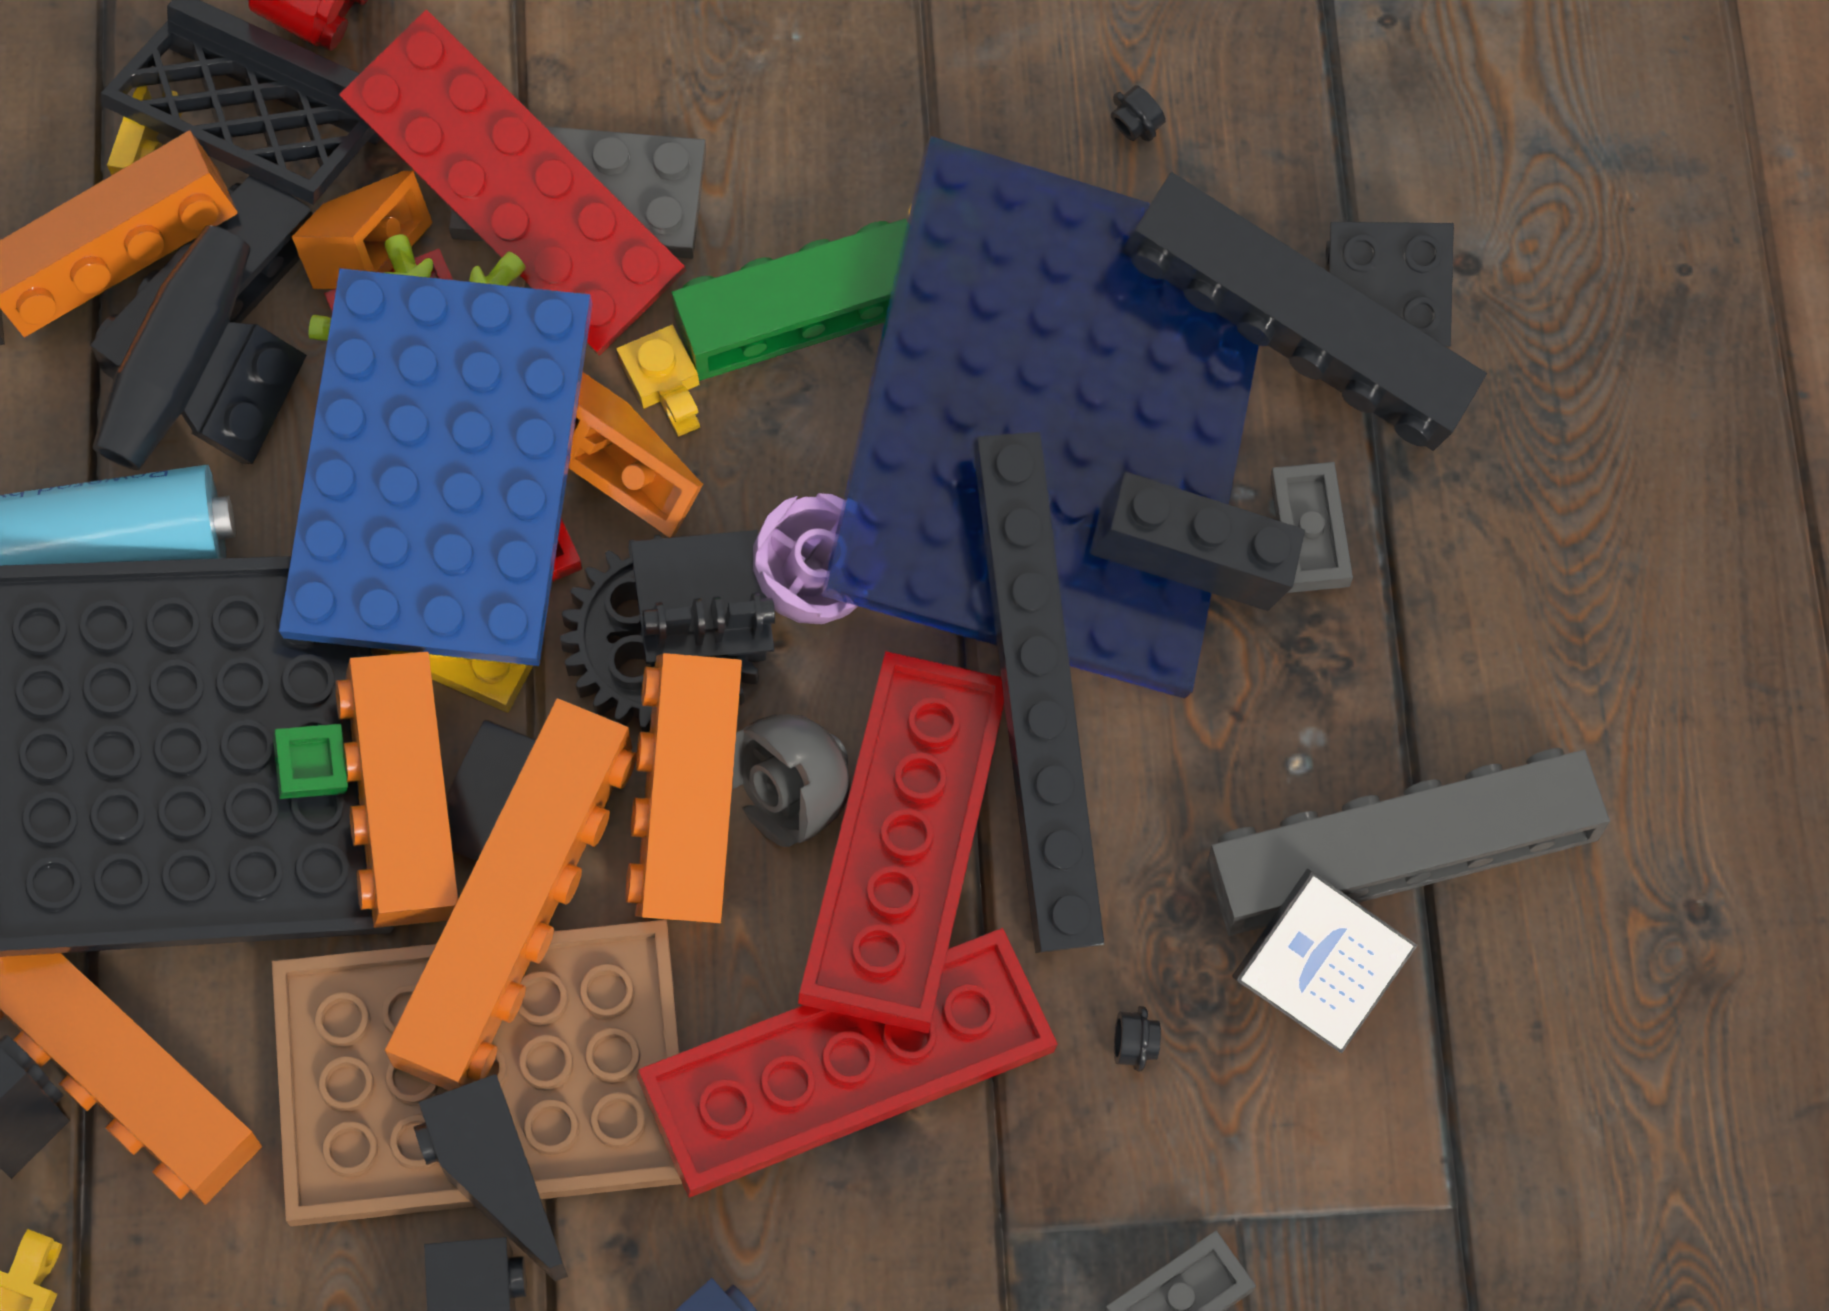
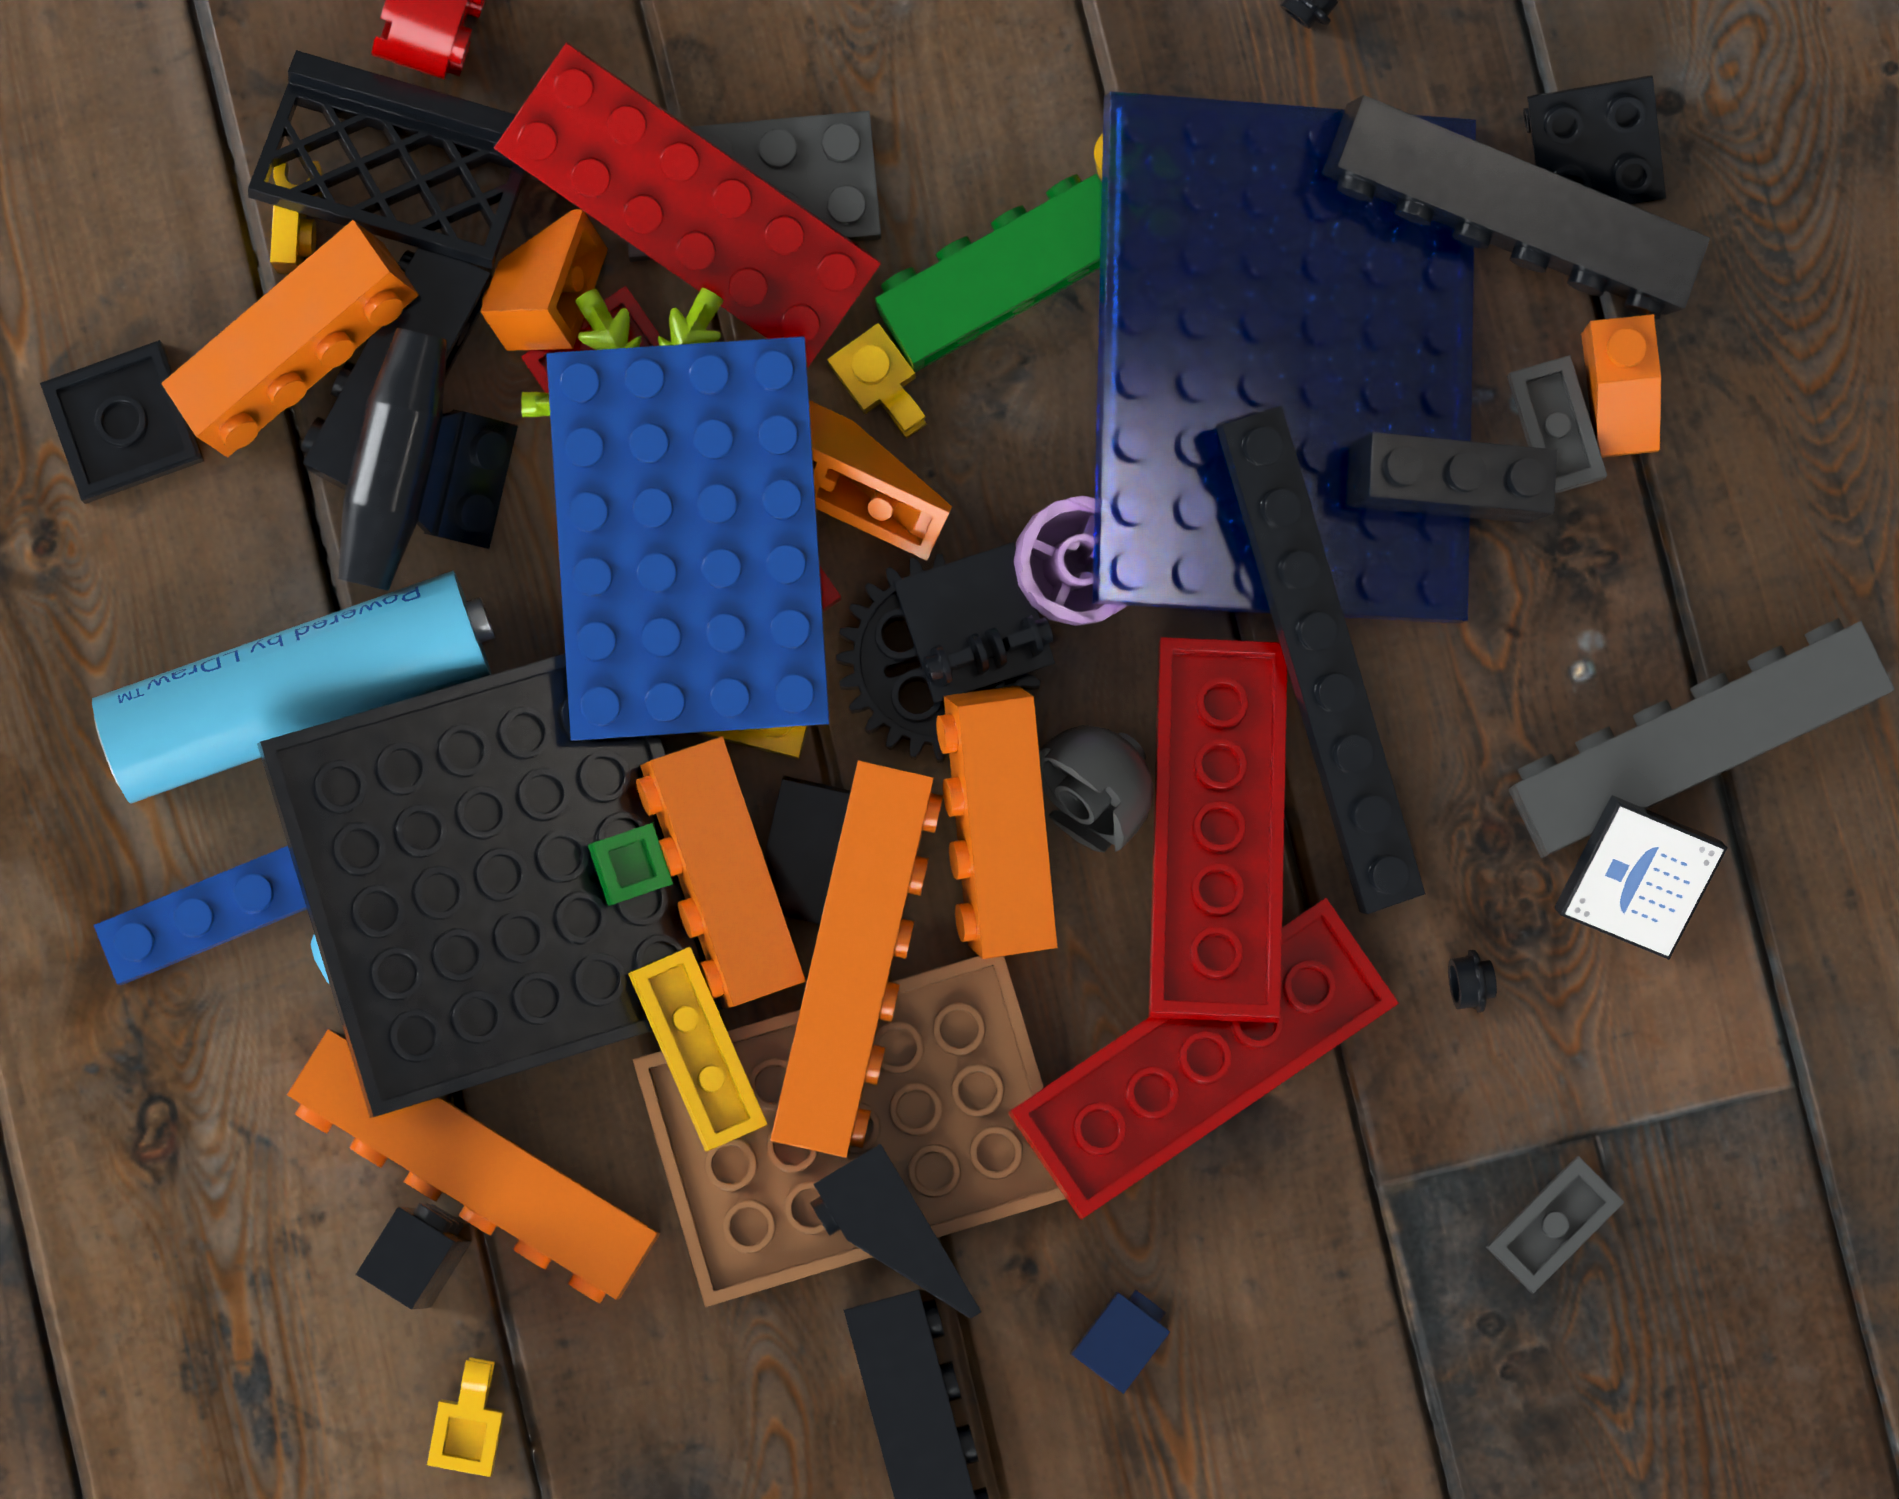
camera: 10 degrees left, 15 degrees up
(336, 955) = (697, 1049): none -> yellow plate
(1382, 497) = (1623, 384): none -> orange slope

